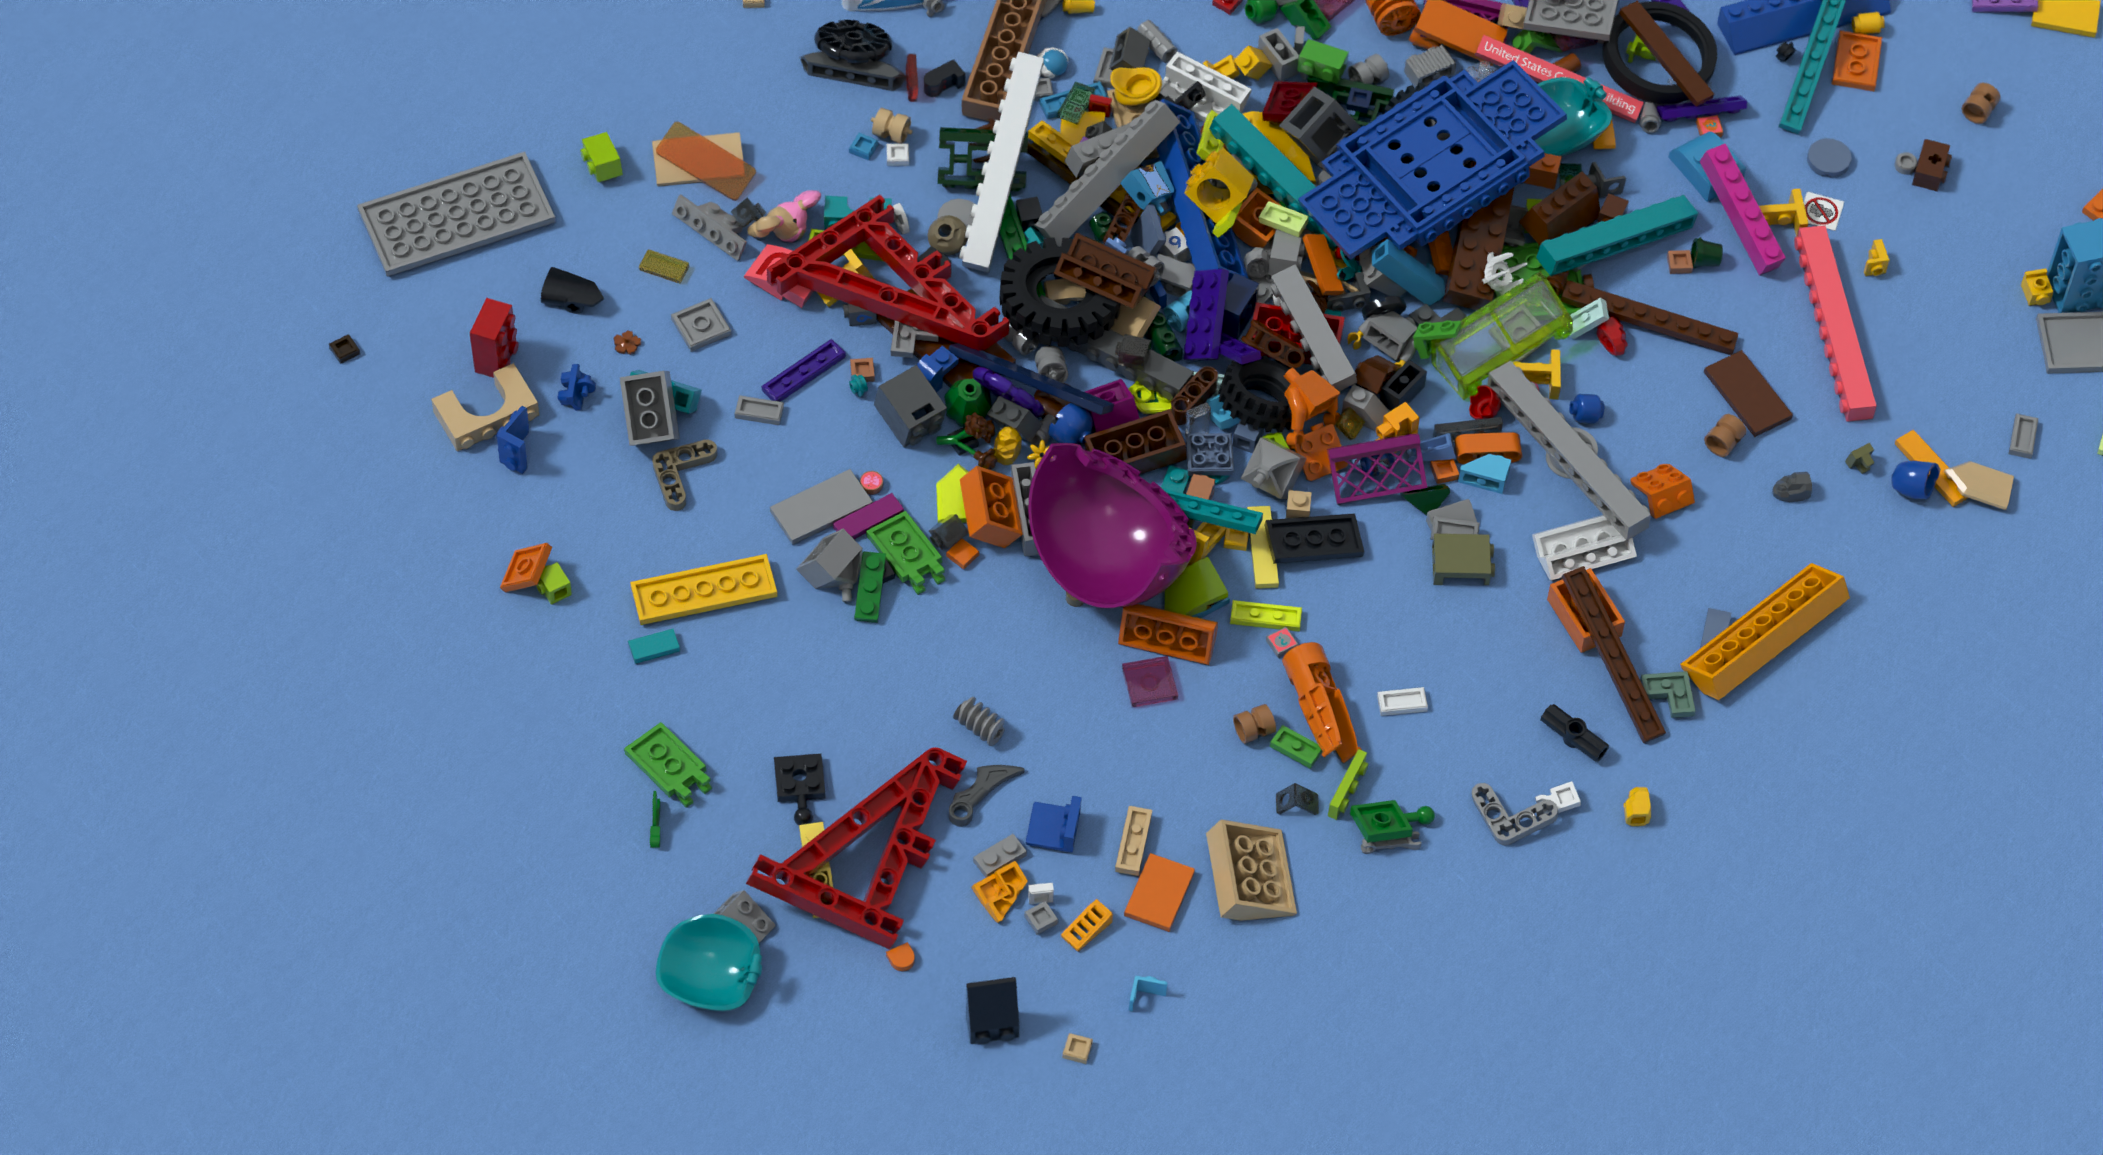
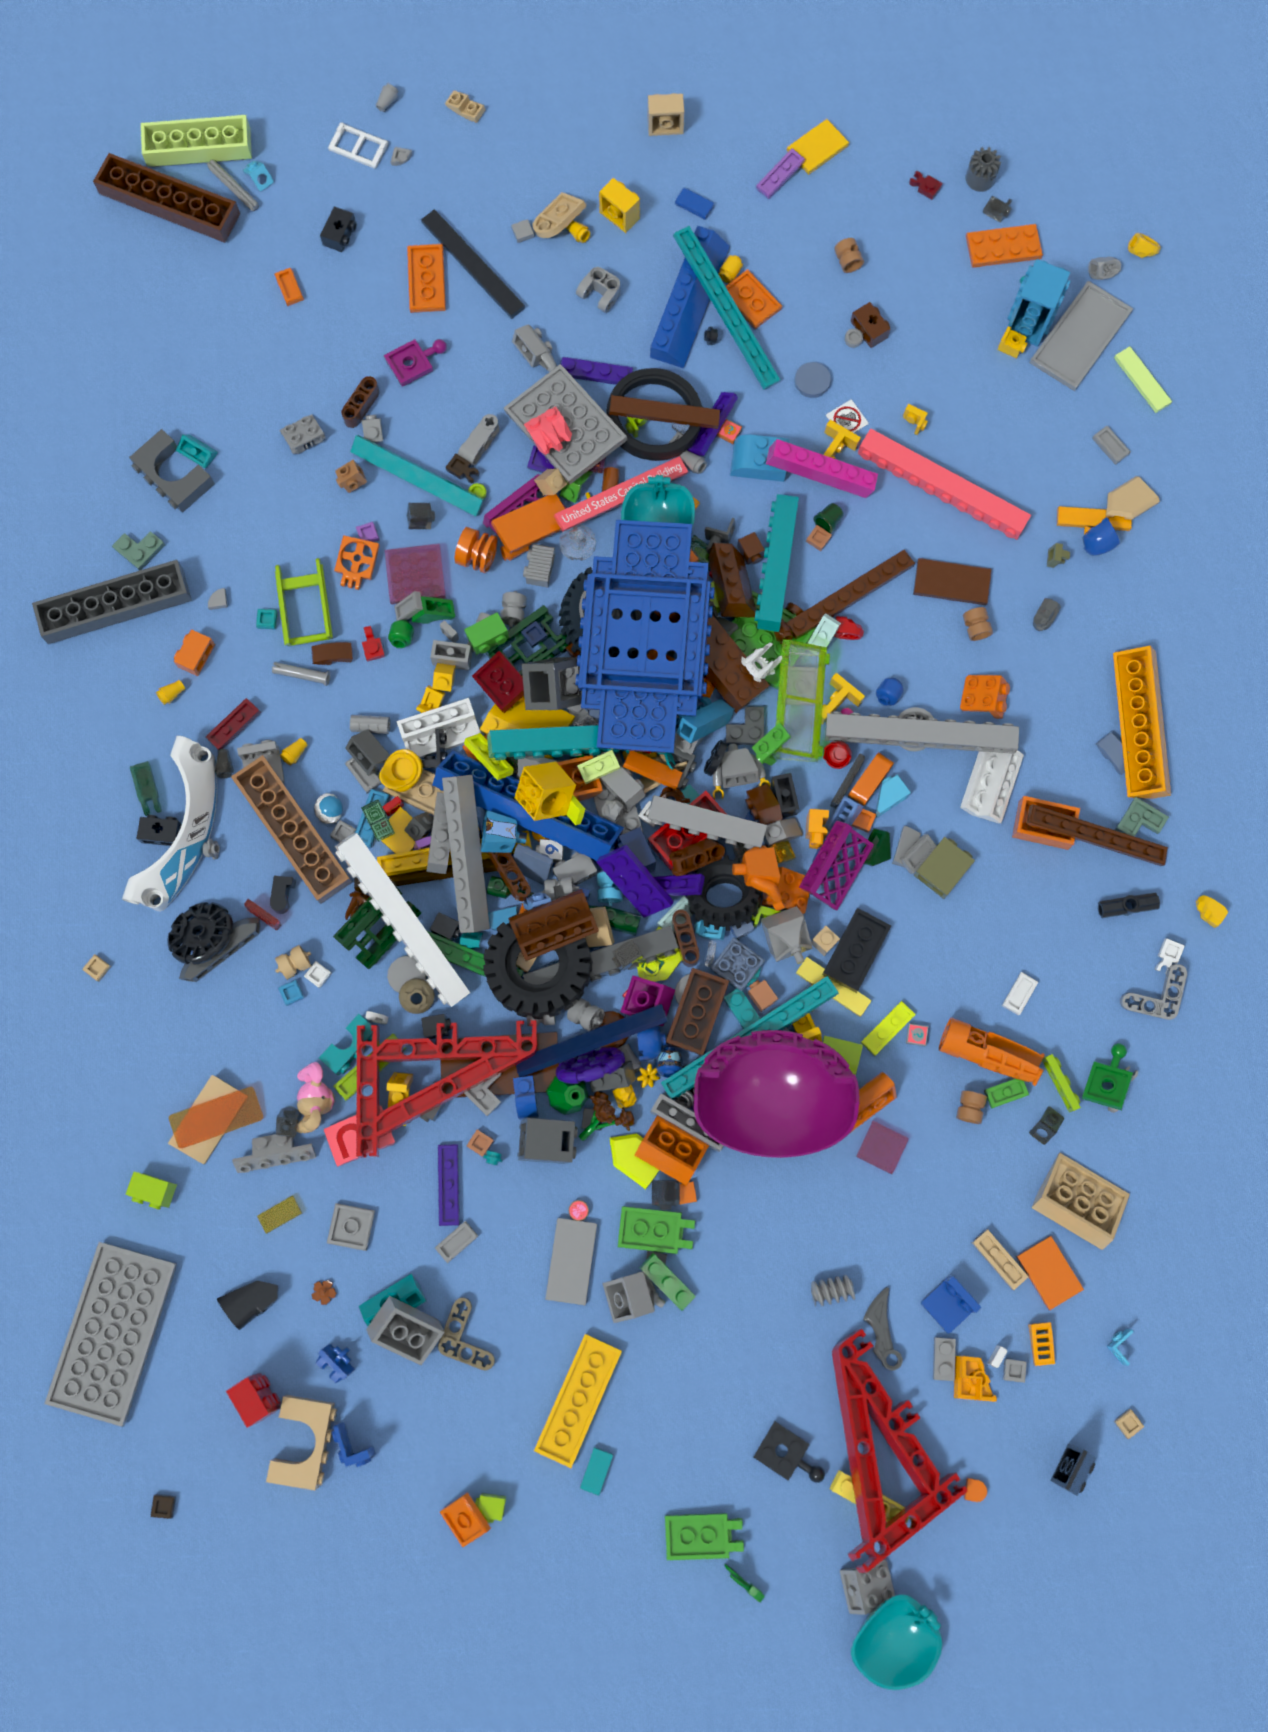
camera: 50 degrees left, 20 degrees up
(869, 516) = (606, 1236): magenta tile -> none

